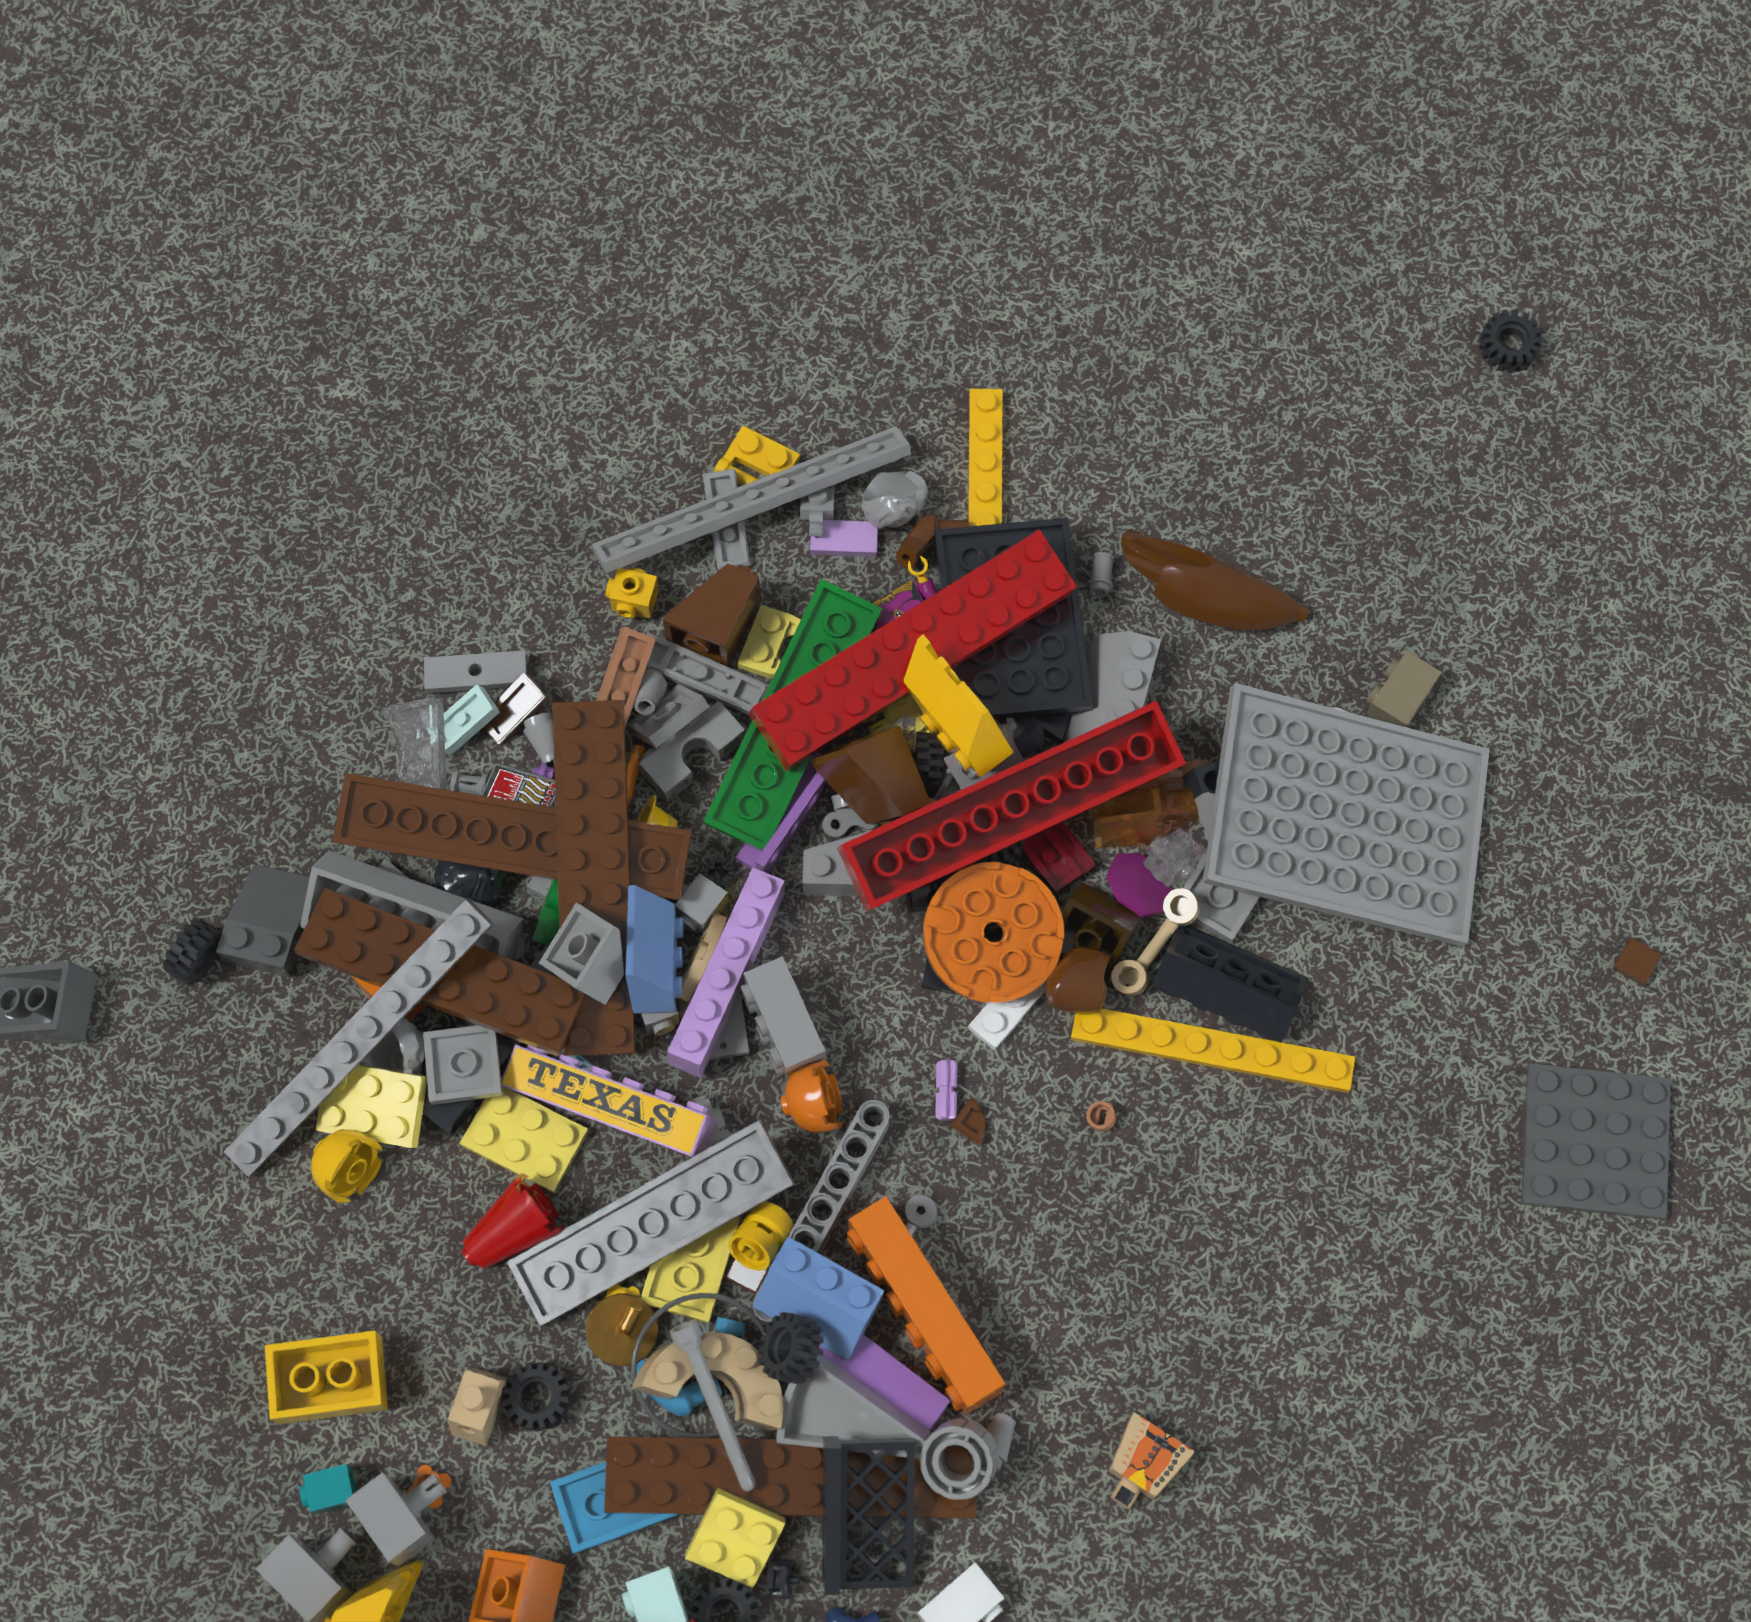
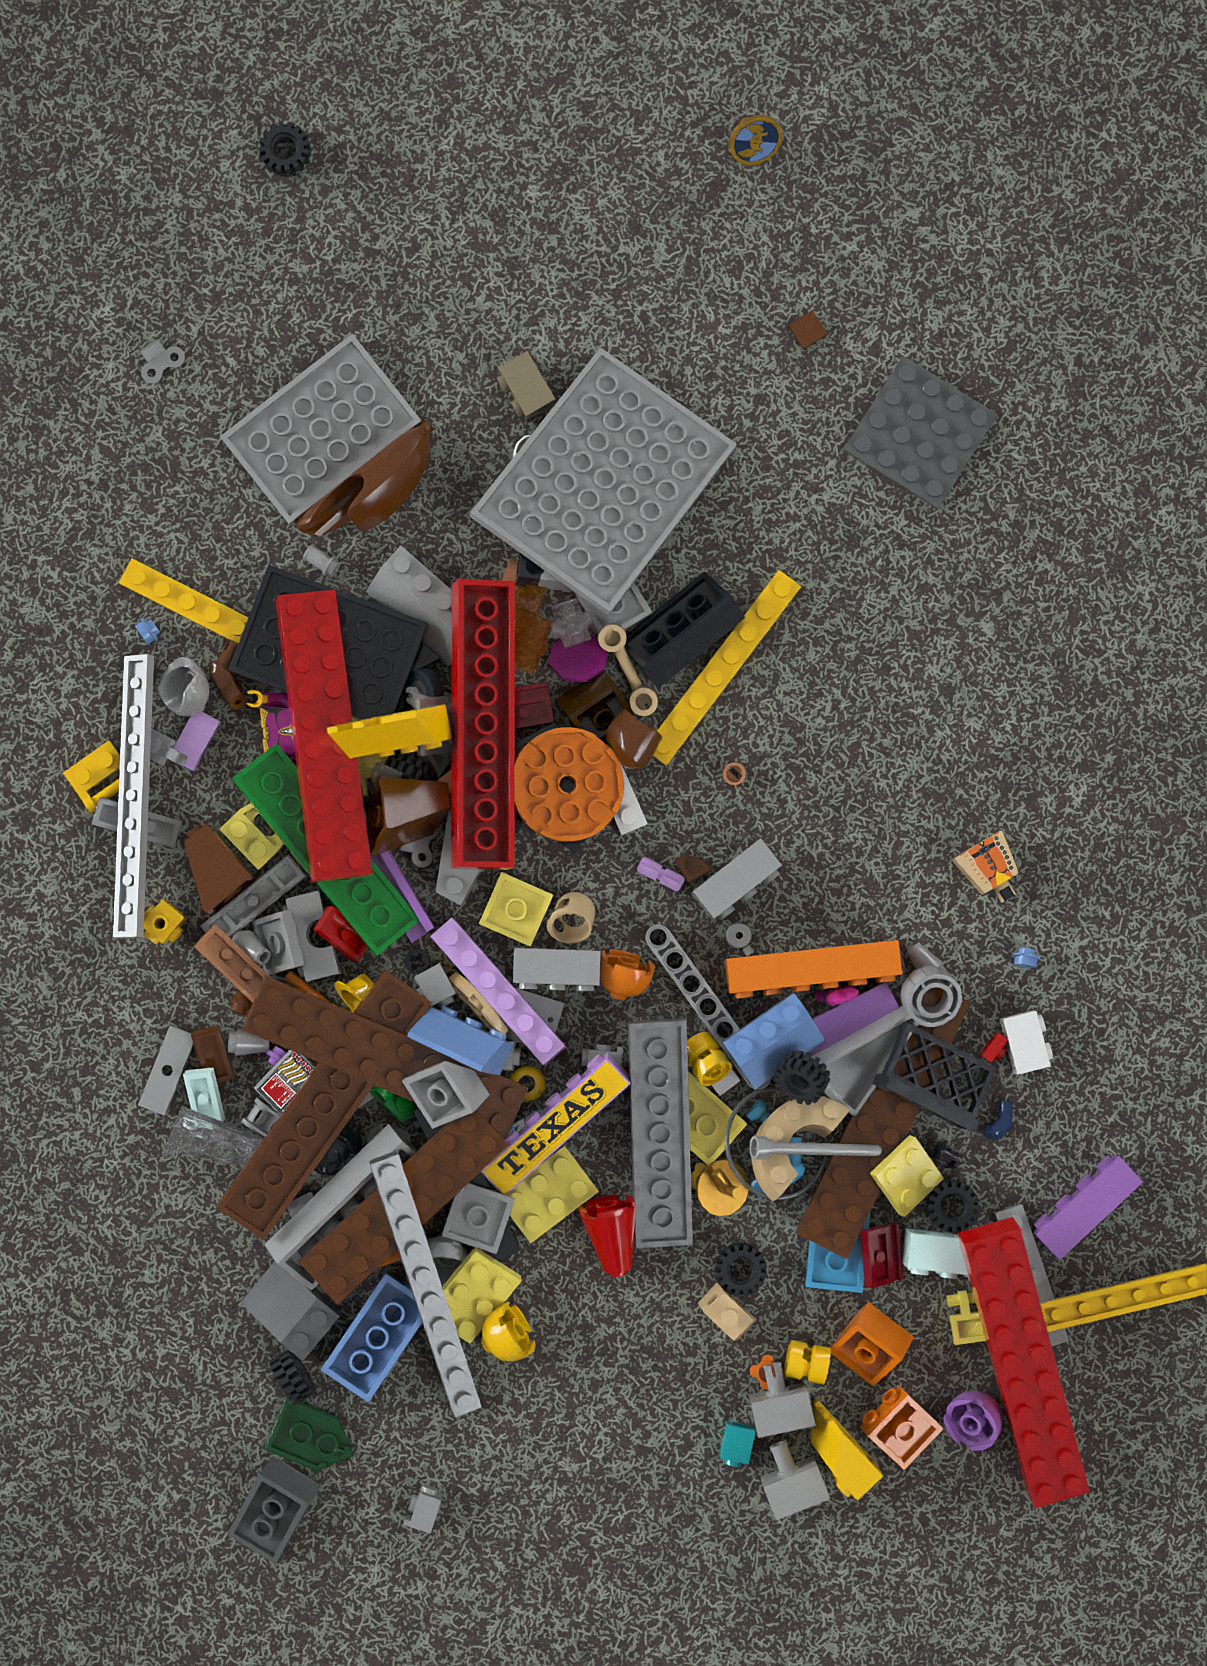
camera: 60 degrees left, 15 degrees up
(104, 1167) = (424, 1509): none -> light grey brick
(134, 1004) = (308, 1436): none -> dark green tile
(274, 1016) = (375, 1338): none -> medium blue slope
(326, 1377) = (658, 1413): yellow brick -> none
(461, 1526) = (807, 1362): none -> yellow wheel
(627, 1553) = (881, 1255): none -> dark red plate
(644, 1070) = (538, 1078): none -> yellow piece
(707, 775) = (340, 934): none -> red plate
(828, 950) = (516, 909): none -> light yellow plate
(865, 1008) = (576, 904): none -> tan helmet
(907, 1353) = (837, 995): none -> dark pink rock
(934, 439) = (147, 630): none -> medium blue plate
(935, 1572) = (994, 1048): none -> red plate
(981, 1172) = (737, 880): none -> light grey brick
(1060, 1560) = (1026, 958): none -> medium blue plate
(1222, 322) = (159, 359): none -> light grey piece
(1241, 506) = (320, 428): none -> light grey plate

